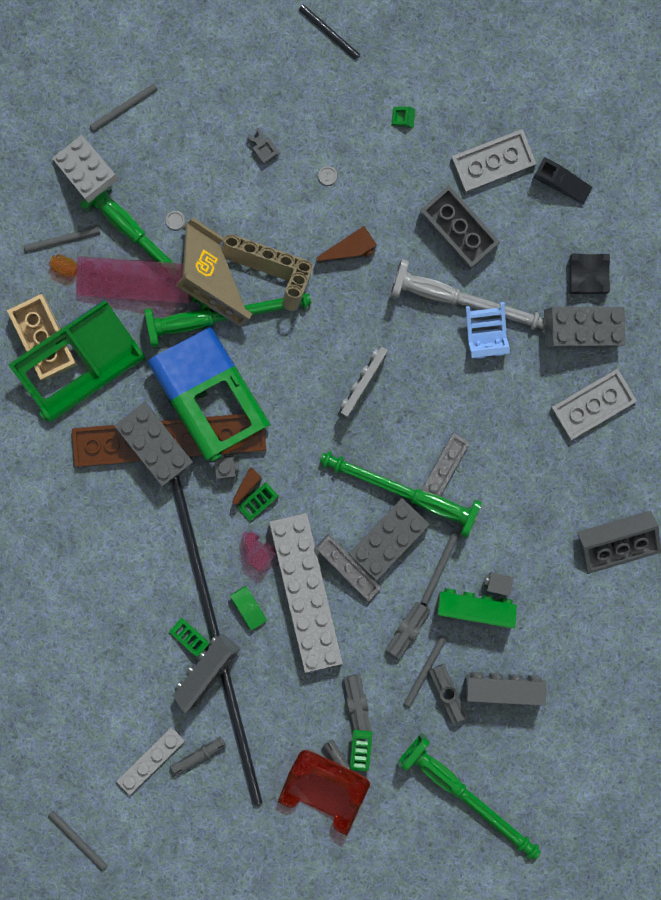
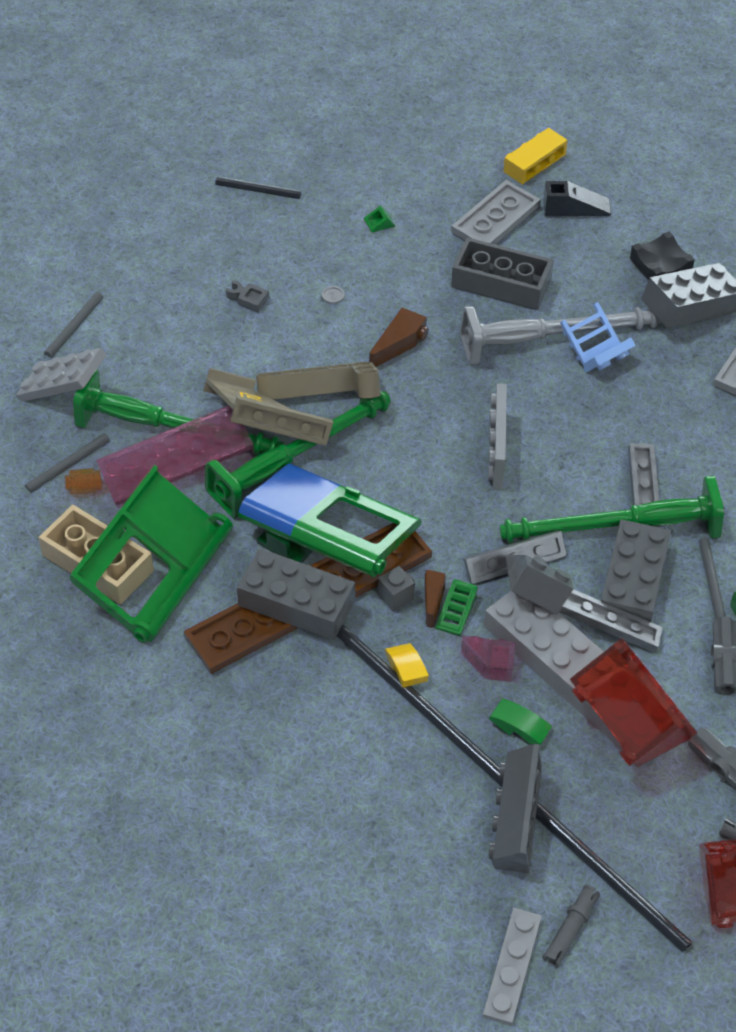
camera: 25 degrees left, 35 degrees down
(175, 220) = (189, 395): light grey piece -> none
(199, 650) = (478, 801): green slope -> none
(201, 527) = (407, 664): none -> yellow slope
(313, 521) = (539, 582): none -> dark grey slope
(315, 651) = (632, 704): none -> clear red windscreen
(319, 482) = (493, 562): none -> flat silver plate
(561, 112) = (535, 155): none -> yellow brick

